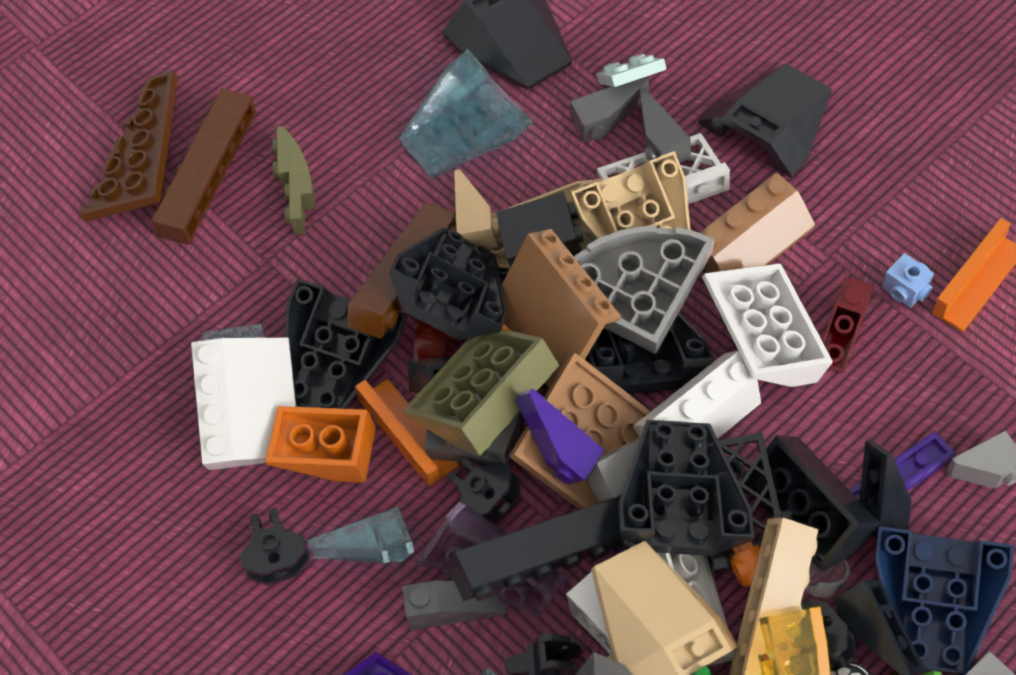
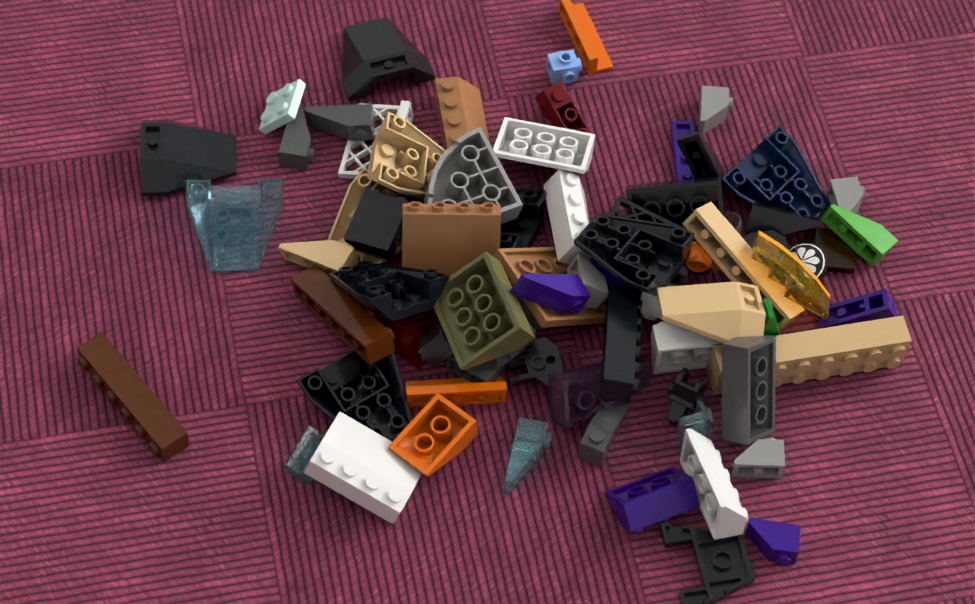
camera: 65 degrees left, 5 degrees down
(138, 159) = (89, 437): reddish brown wing -> none
(272, 551) = (495, 508): black hinge -> none
(294, 179) = (187, 343): olive slope -> none

